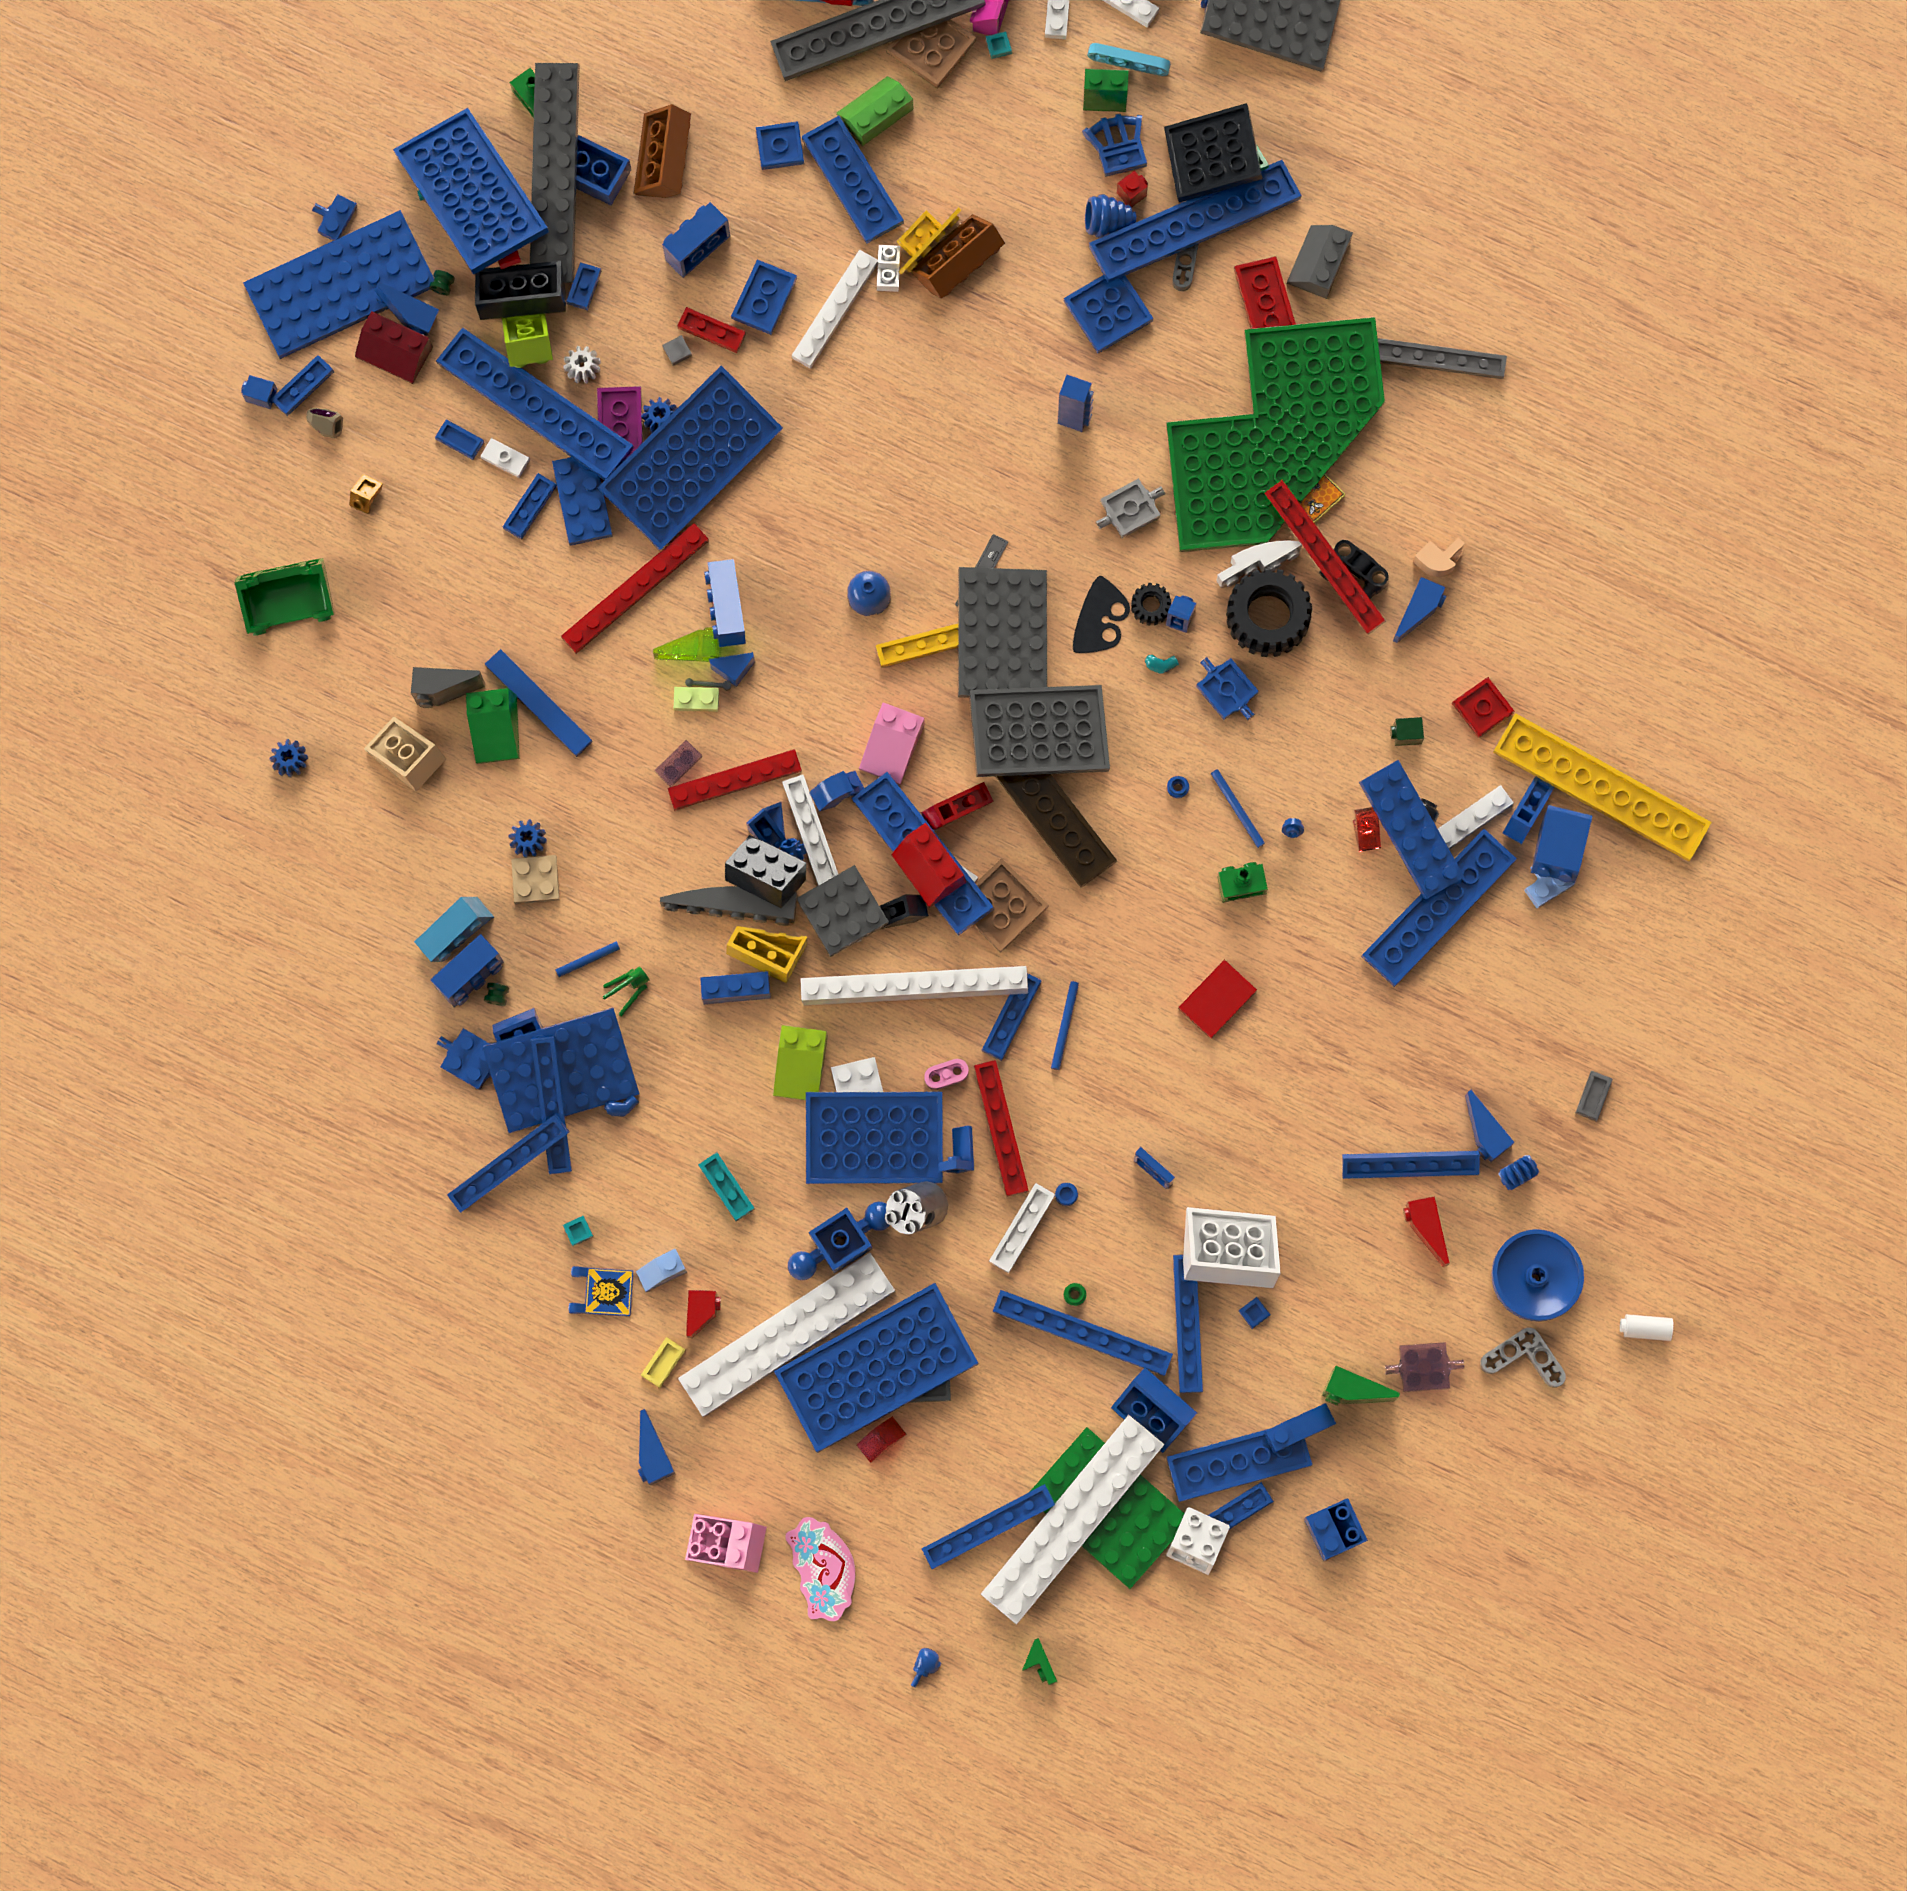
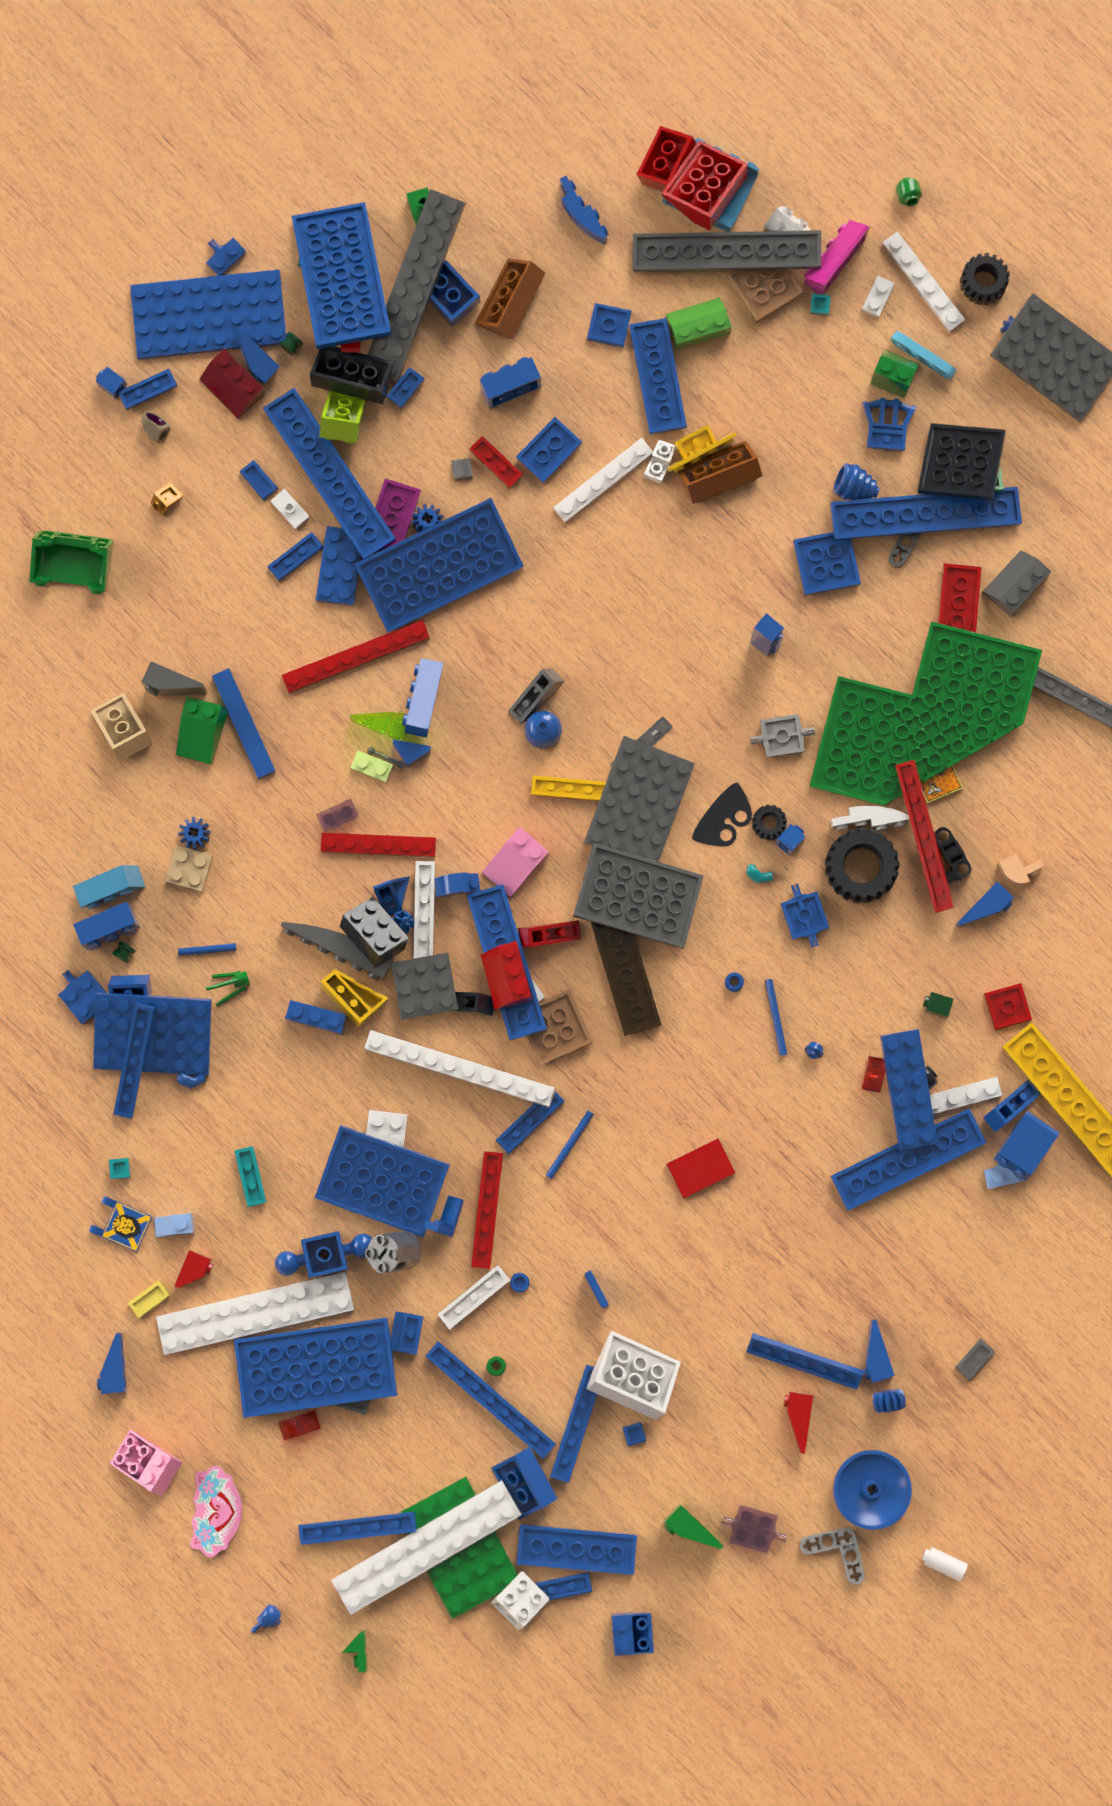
camera: 20 degrees right, 5 degrees up
(286, 751) = (32, 691): blue gear -> none
(508, 1163) = (83, 1094): blue plate -> none
(590, 364) = (388, 453): white gear -> none
(709, 42) = (584, 218): none -> blue slope
(799, 1062) = (345, 1097): lime slope -> none
(847, 558) = (536, 694): none -> dark grey slope
(946, 1074) = (459, 1149): bright pink plate -> none
(962, 1293) = (406, 1332): none -> blue plate
(1132, 189) = (884, 467): red brick -> none
(1242, 882) = (756, 1080): green brick -> none
(1299, 1428) = (634, 1542): blue slope -> none

